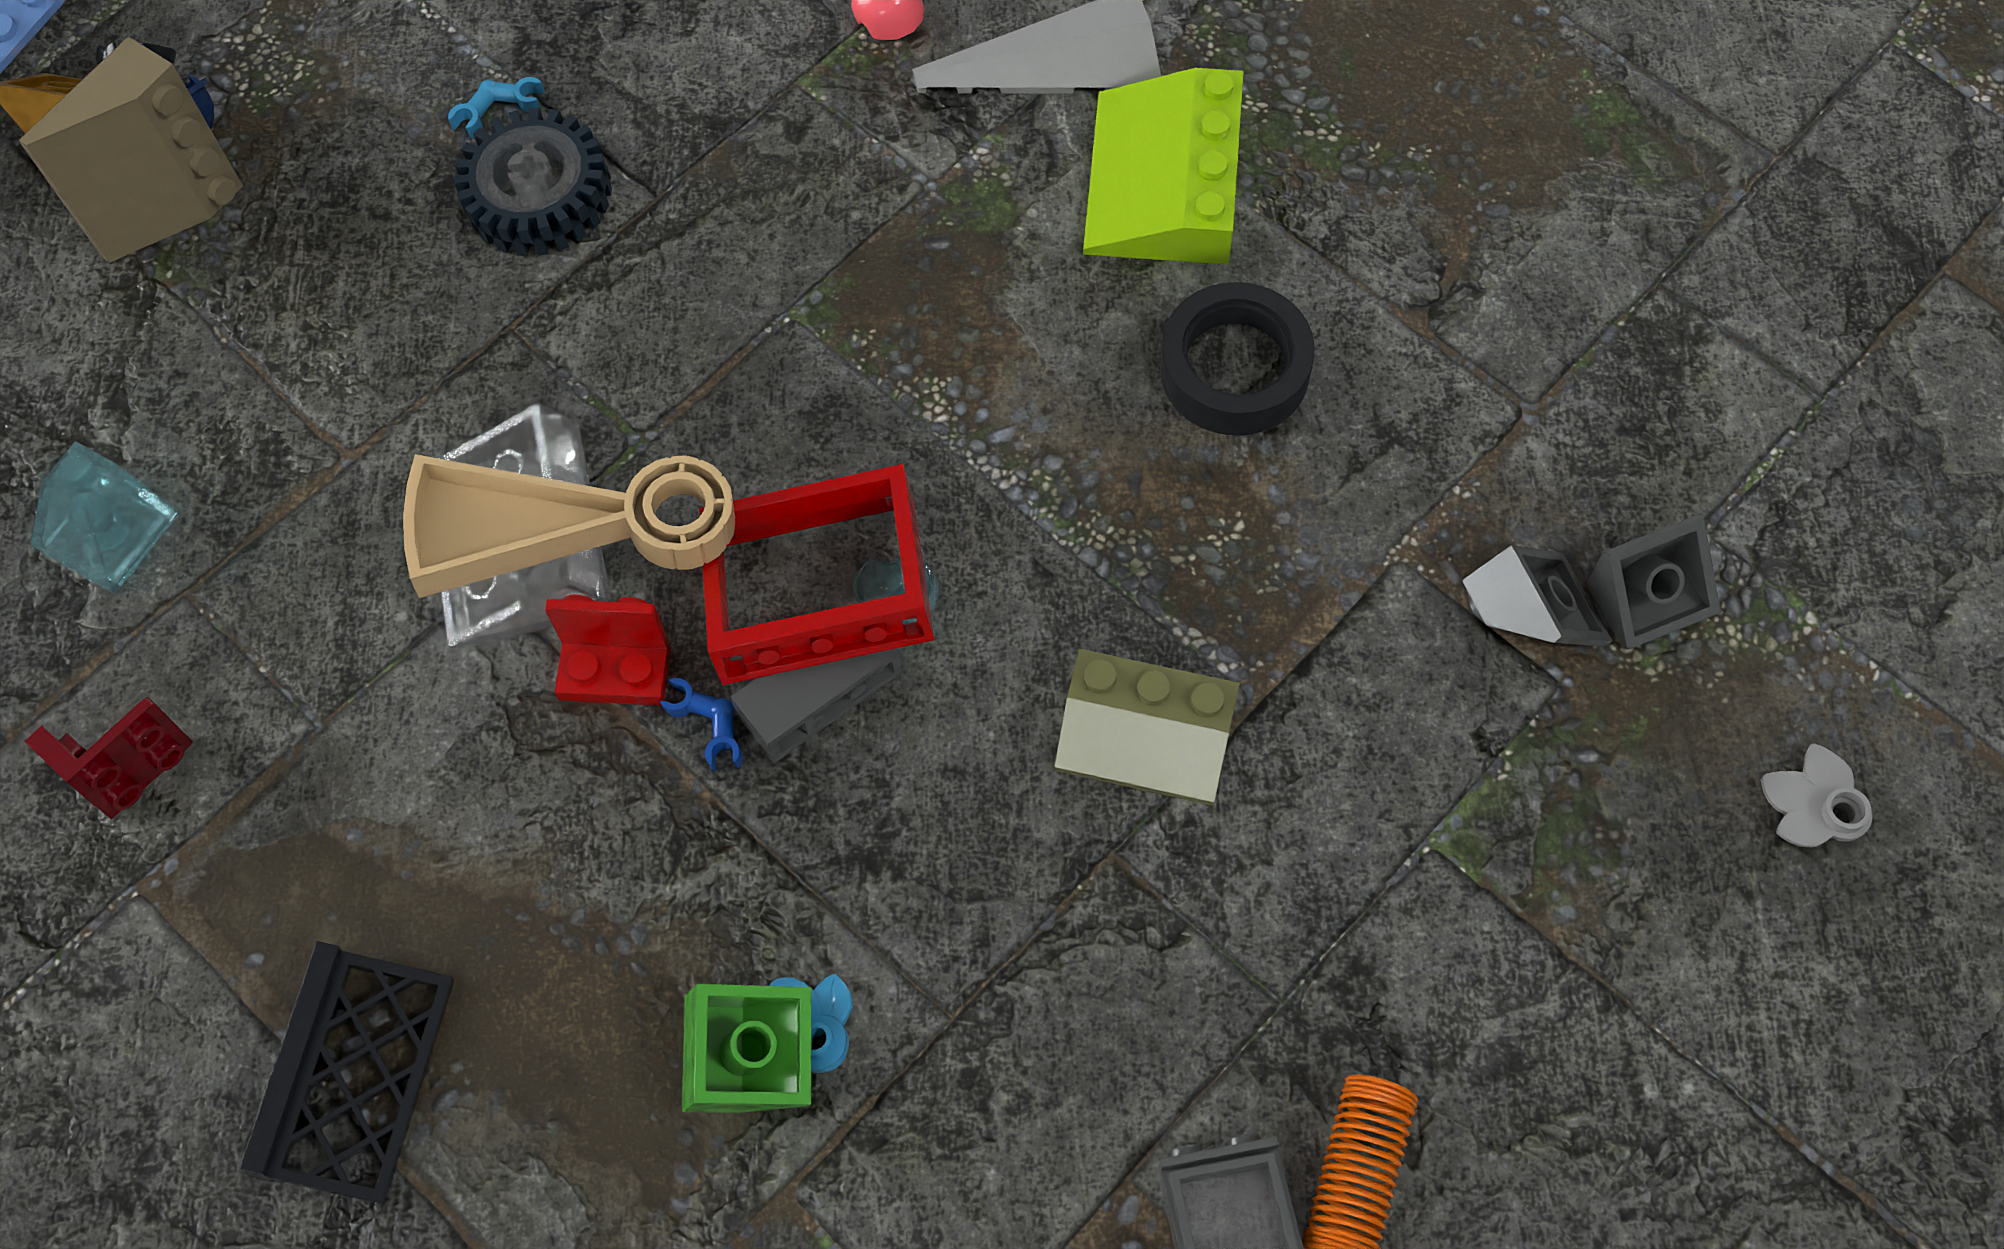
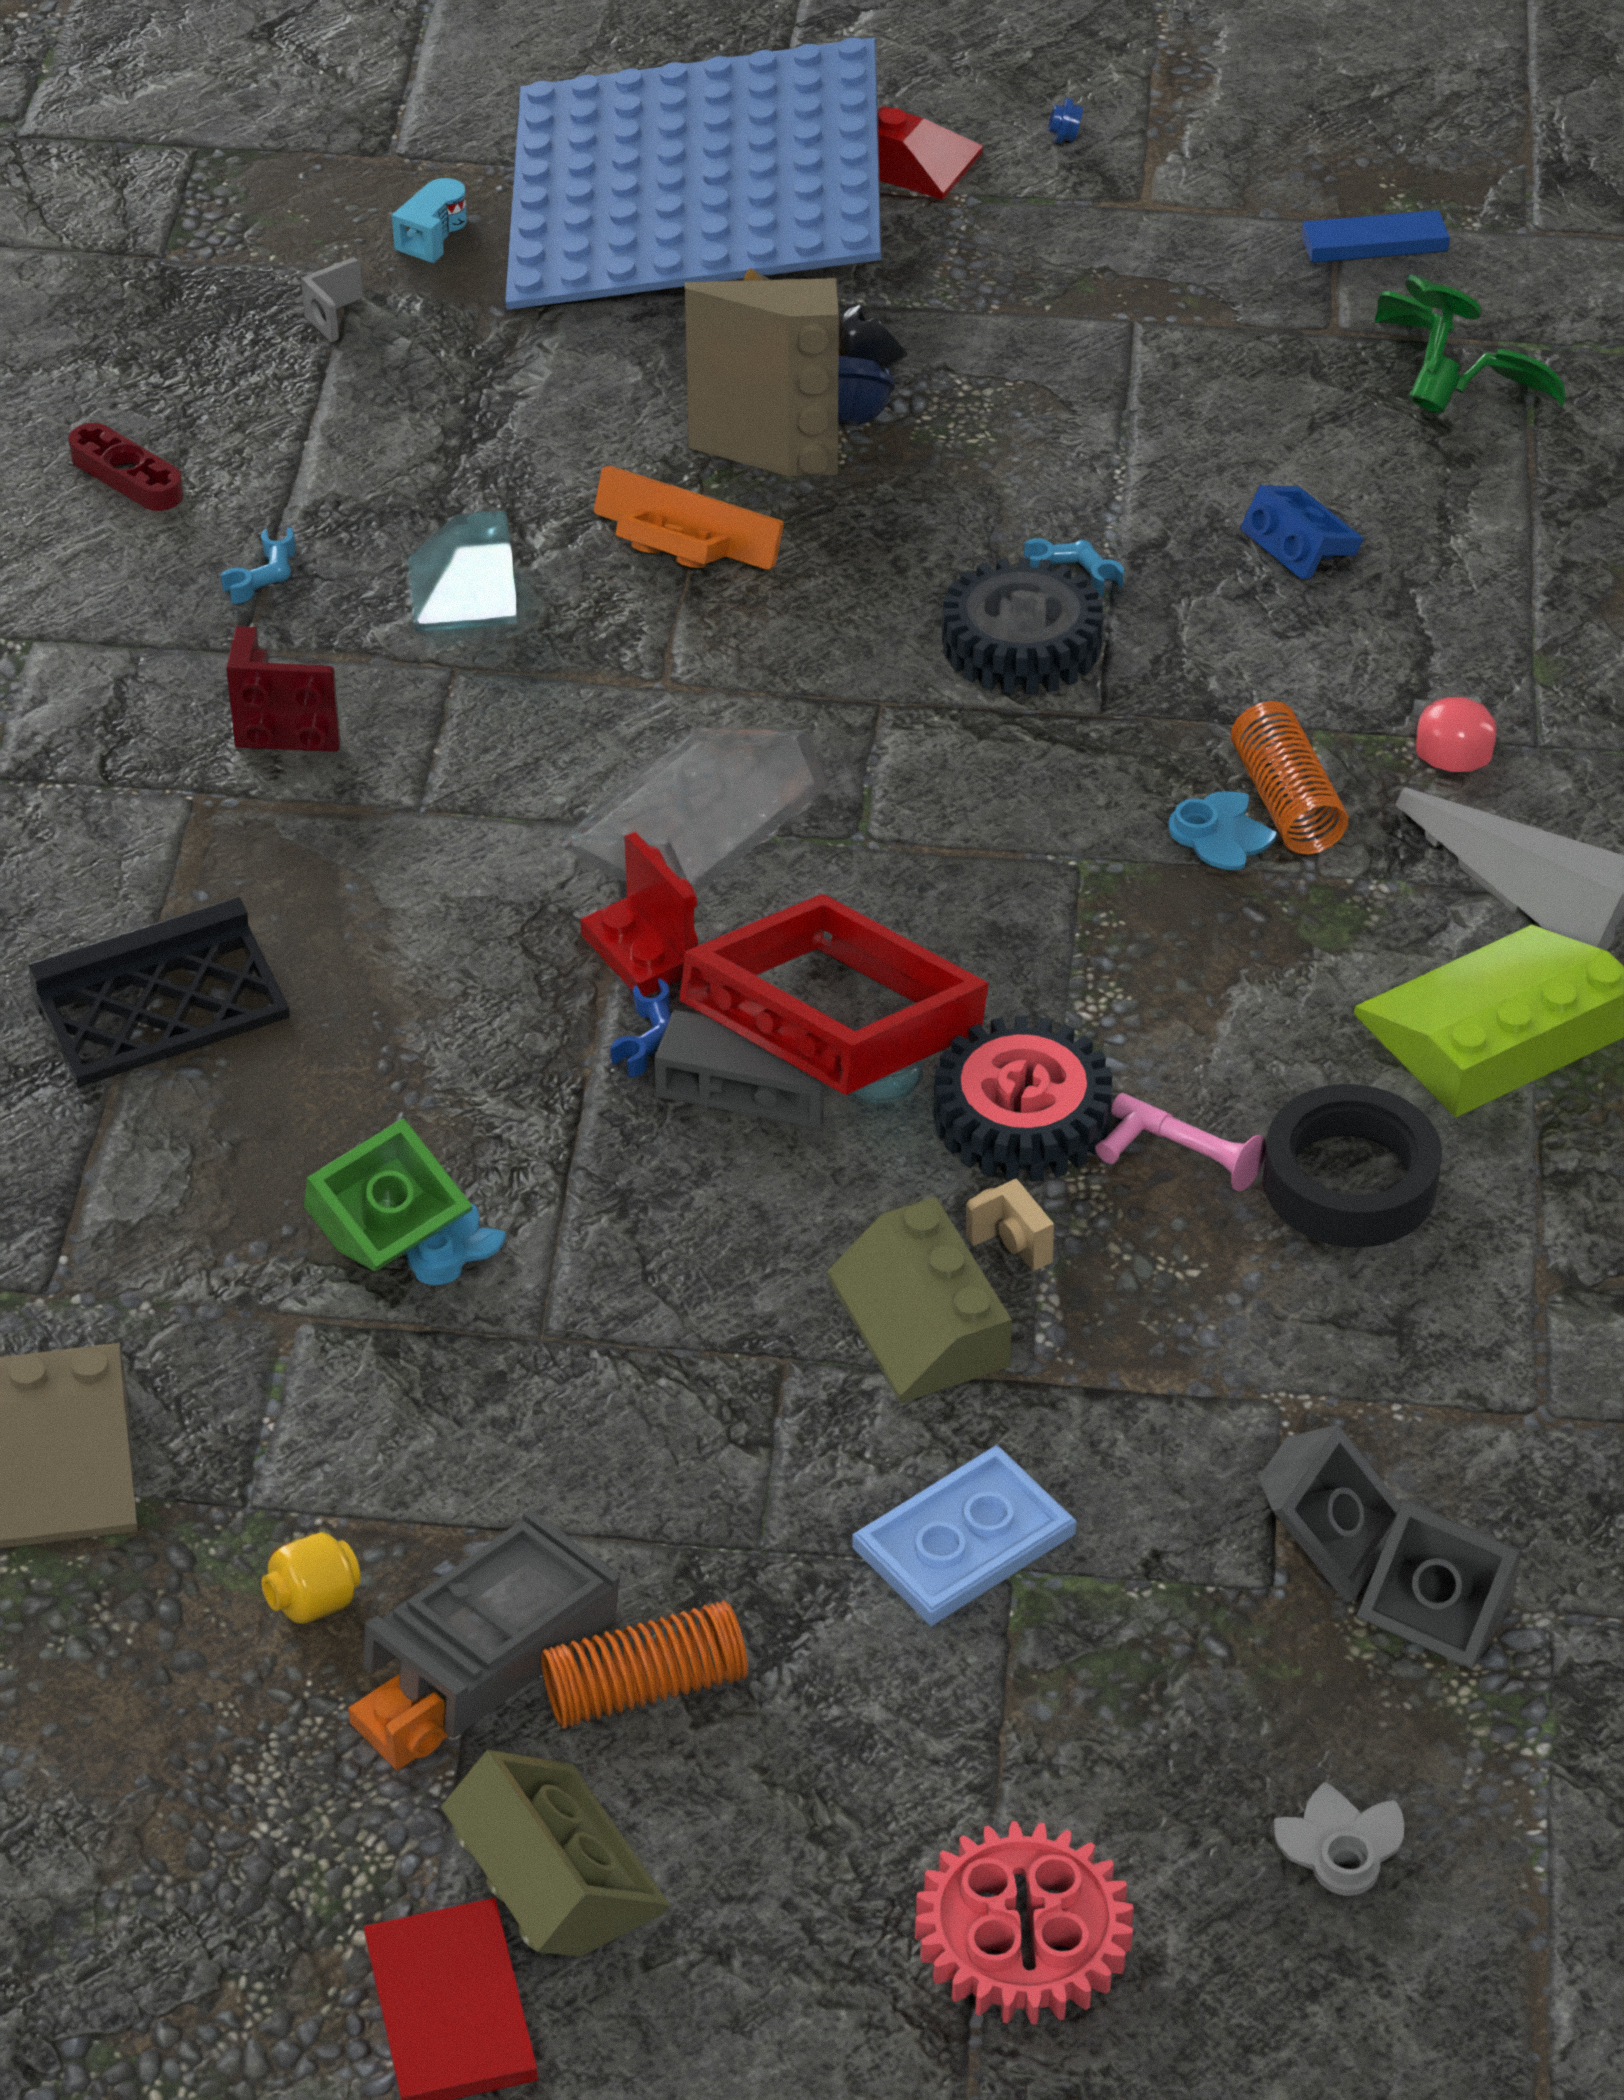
camera: 50 degrees right, 20 degrees down
(198, 325) = (685, 522): none -> orange bracket
(488, 522) = (668, 758): tan piece -> none
(851, 204) = (1220, 829): none -> dark azure plate
(894, 140) = (1301, 799): none -> orange piece
(1026, 489) = (986, 1081): none -> black wheel
(1080, 453) = (1240, 1159): none -> bright pink piece
(1123, 604) = (1016, 1218): none -> tan bracket
(1375, 852) = (964, 1535): none -> light blue tile
(1748, 1109) = (1085, 1917): none -> coral gear

